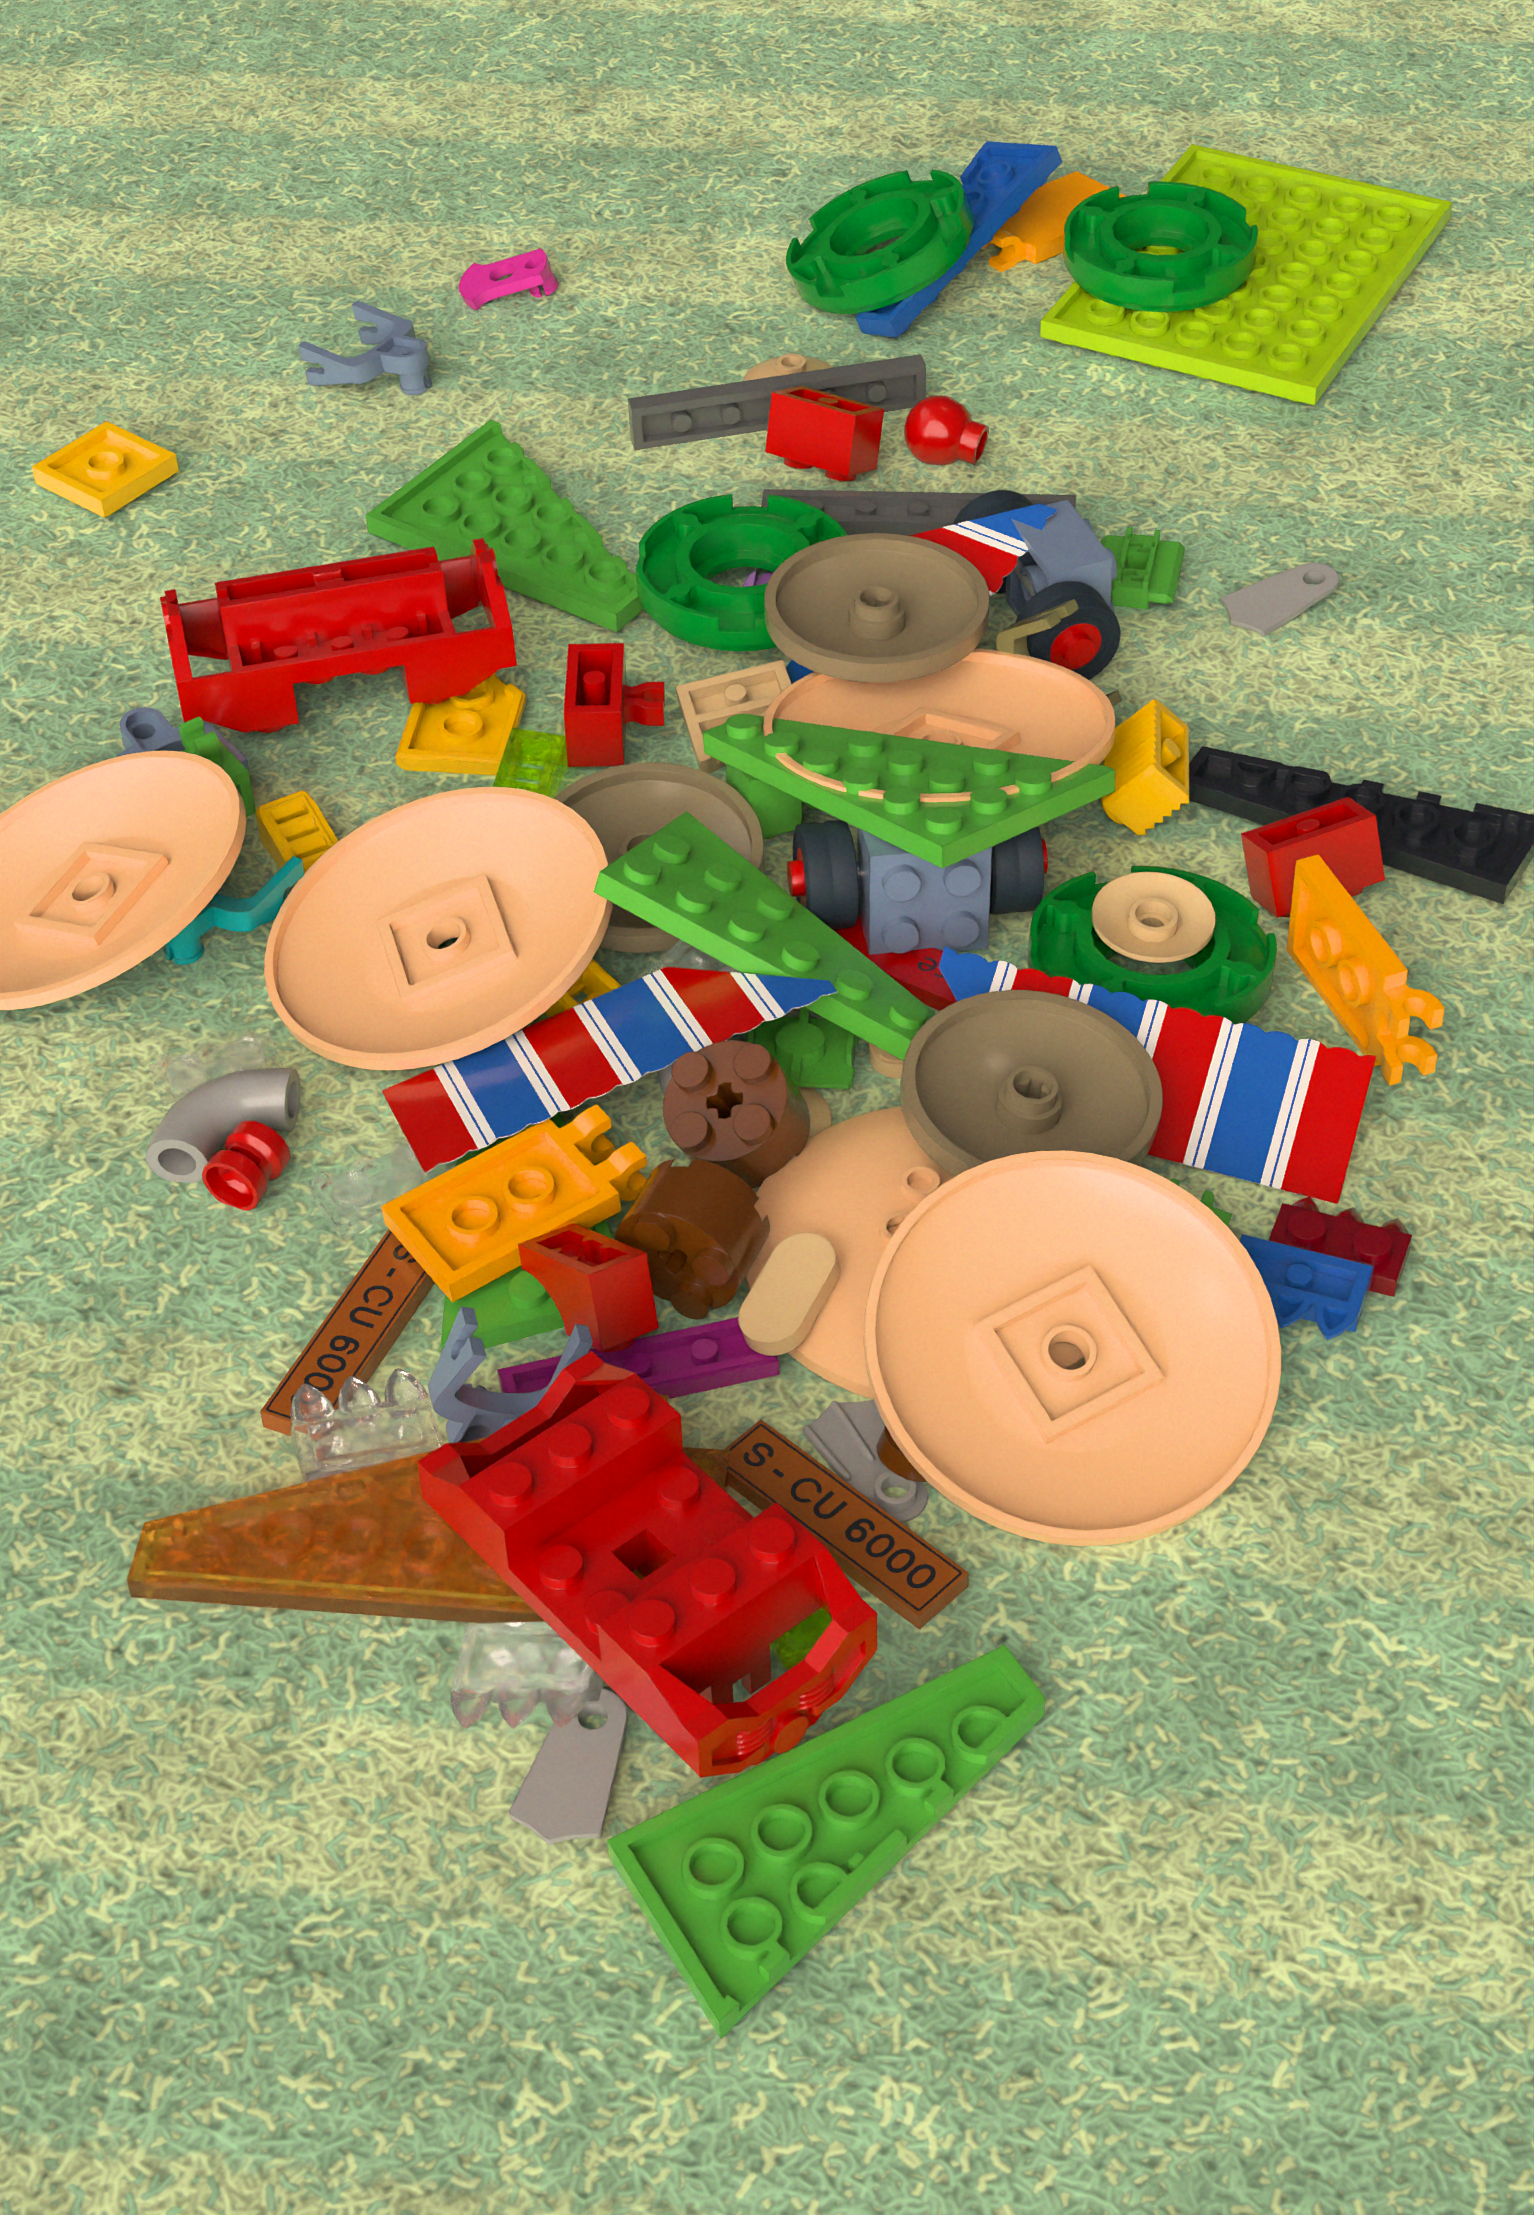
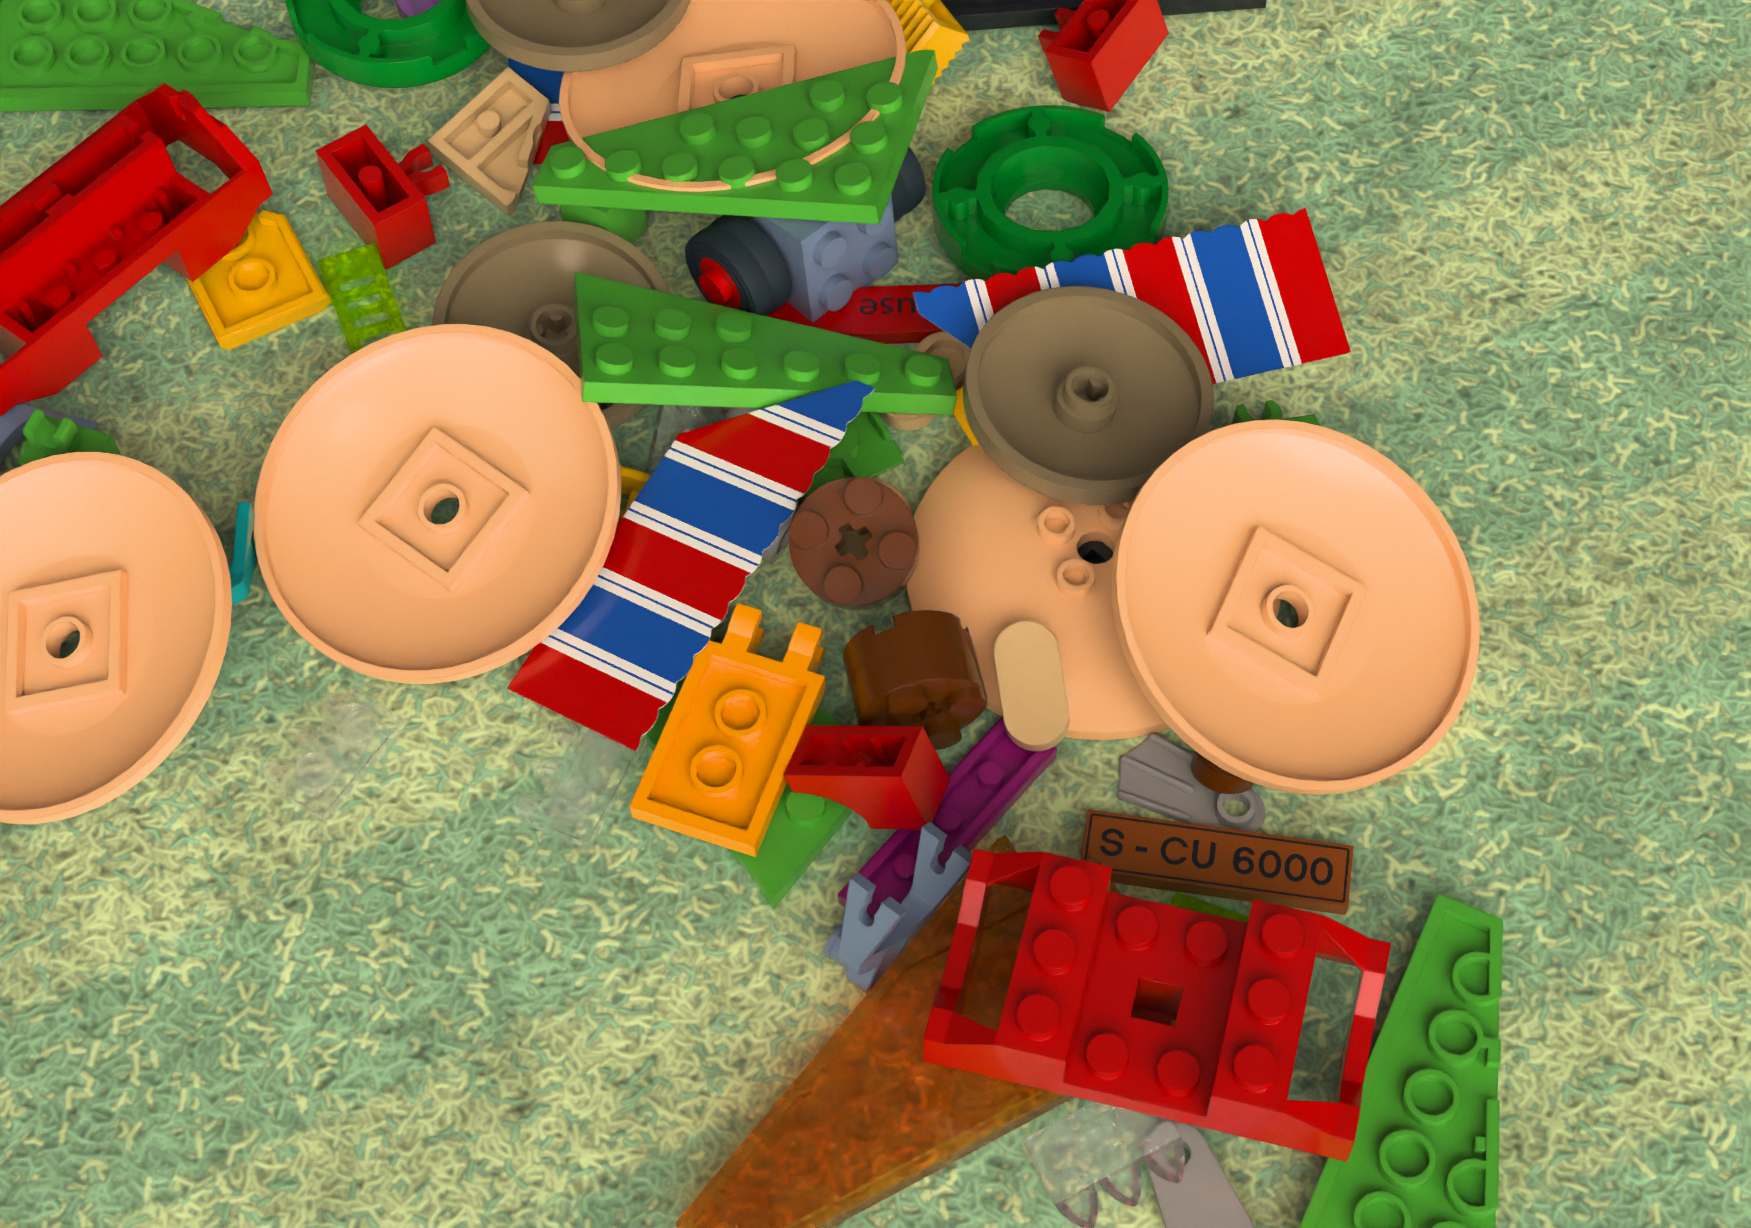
camera: 35 degrees left, 15 degrees up
(211, 1111) = (381, 800): light grey cylinder -> none
(250, 1160) = (455, 831): red wheel -> none
(294, 828) = (188, 459): yellow slope -> none
(356, 1330) = (688, 944): dark orange tile -> none
(362, 1427) = (788, 1020): clear plate -> none
(1153, 917) = (1045, 153): tan dish -> none
(1311, 1285) = (1410, 437): blue plate -> none
(1346, 1238) = (1386, 392): dark red plate -> none
(1358, 973) = (1233, 136): light orange tile -> none

